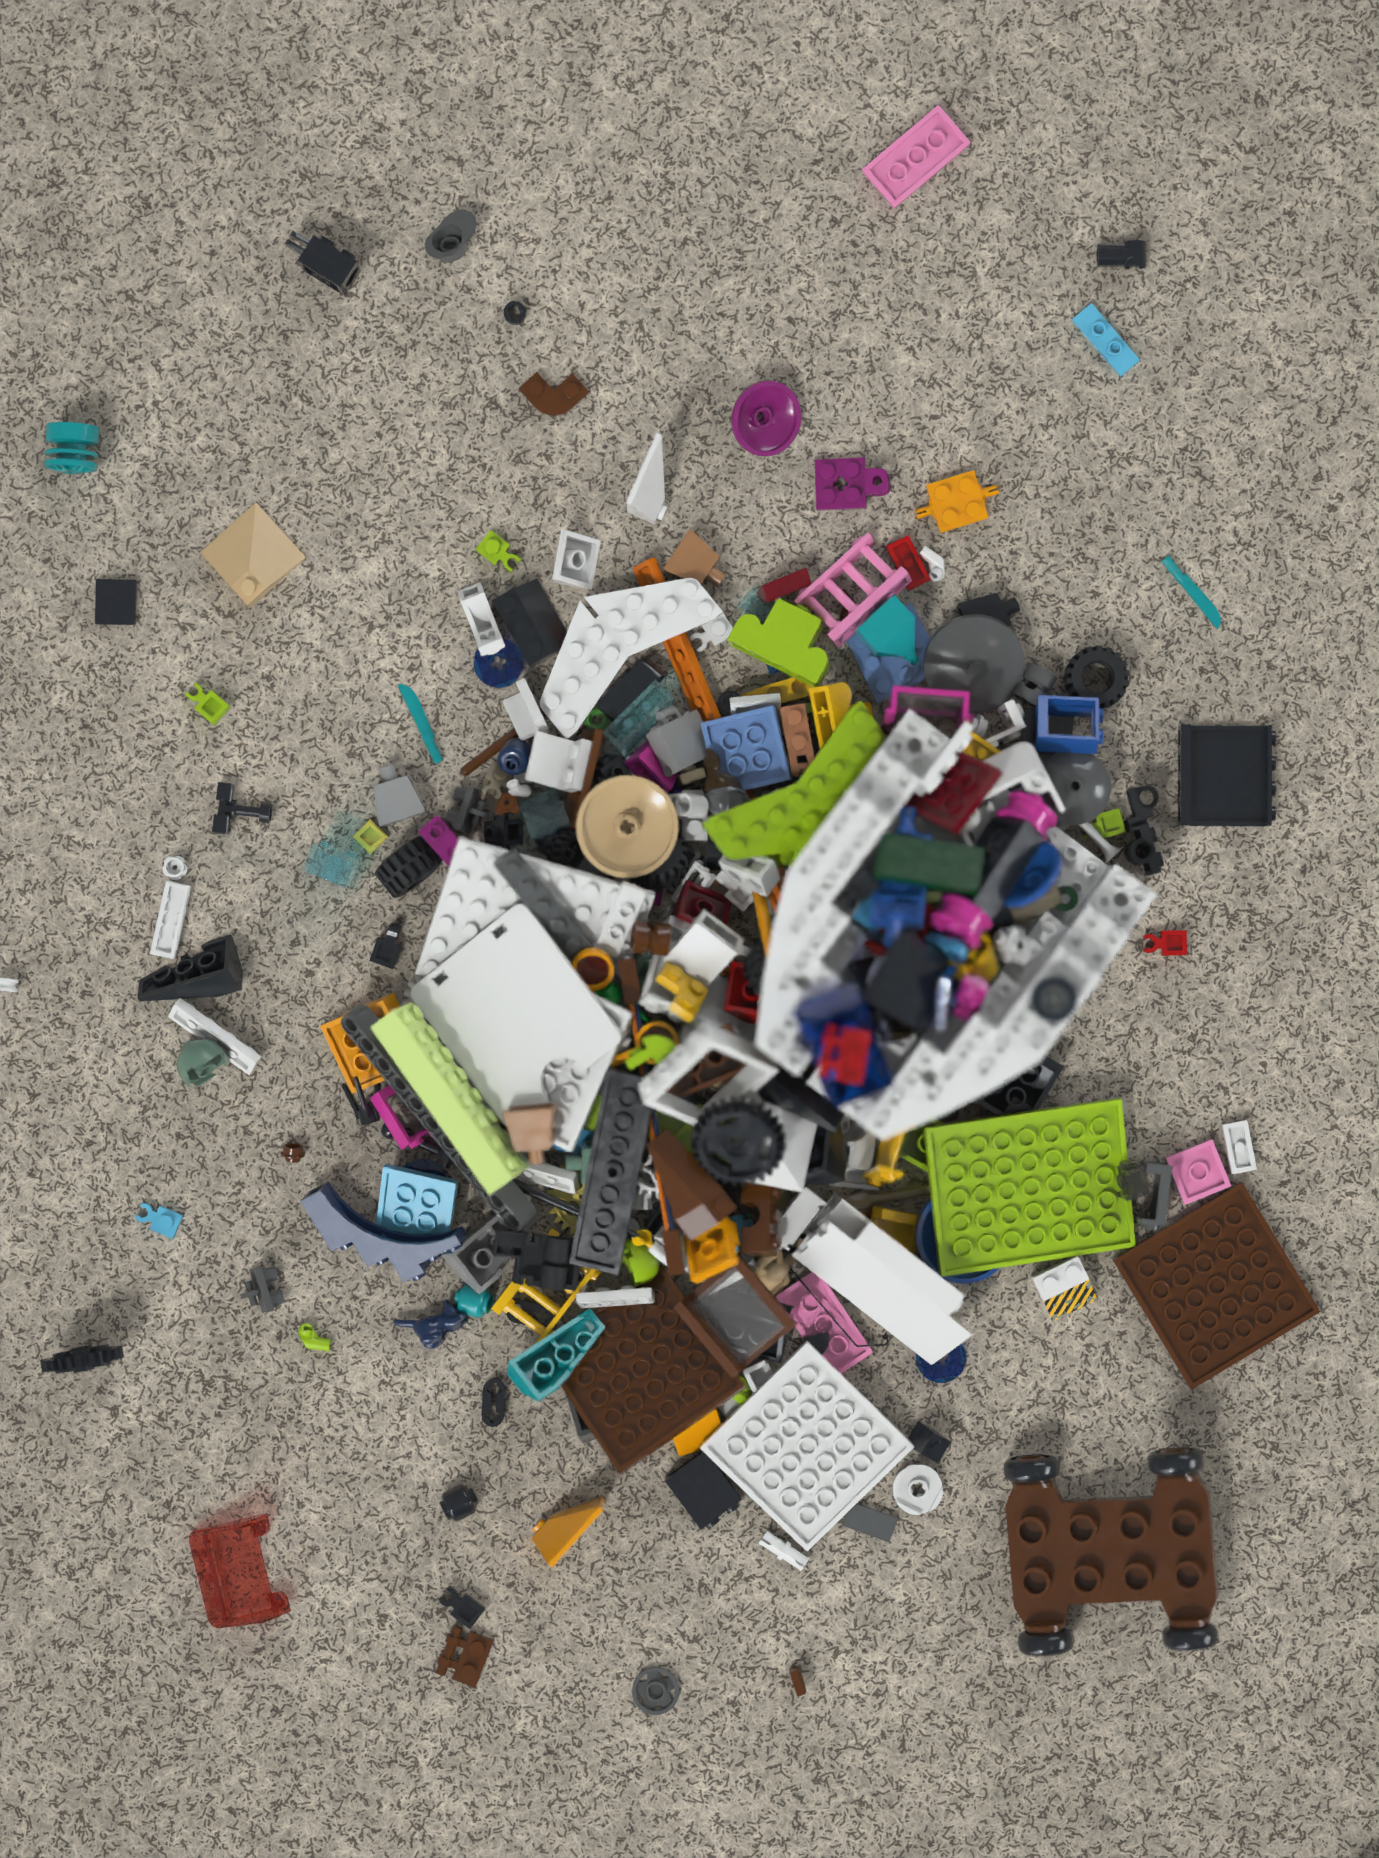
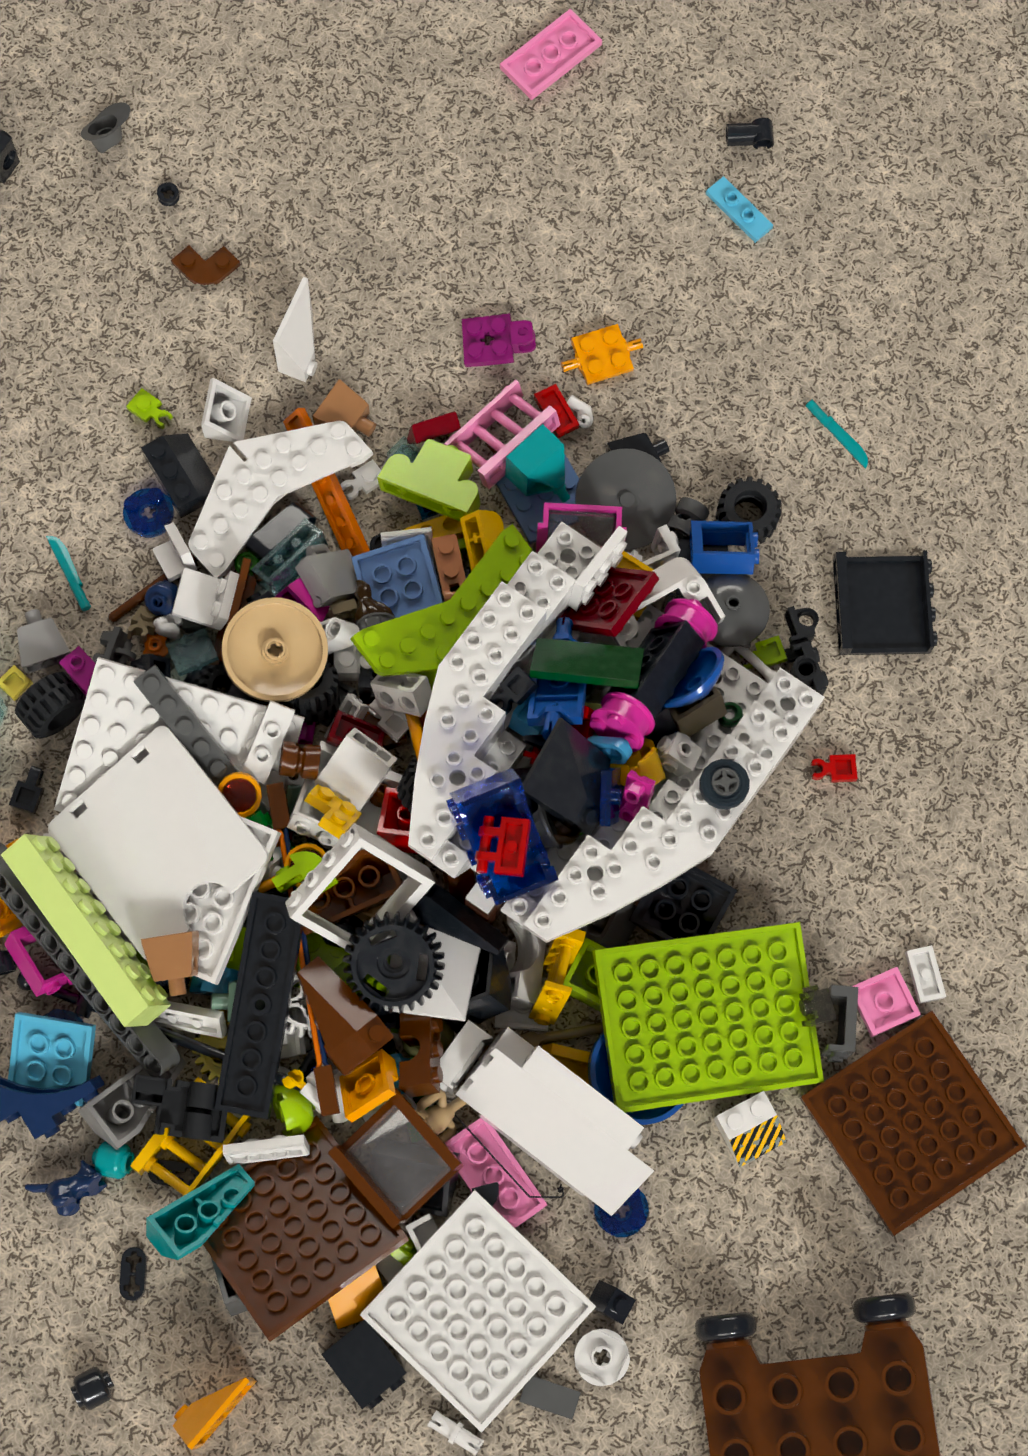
camera: 10 degrees left, 15 degrees down
(481, 619) = (130, 468): white arch -> none
(778, 422) = (425, 276): magenta dish -> none

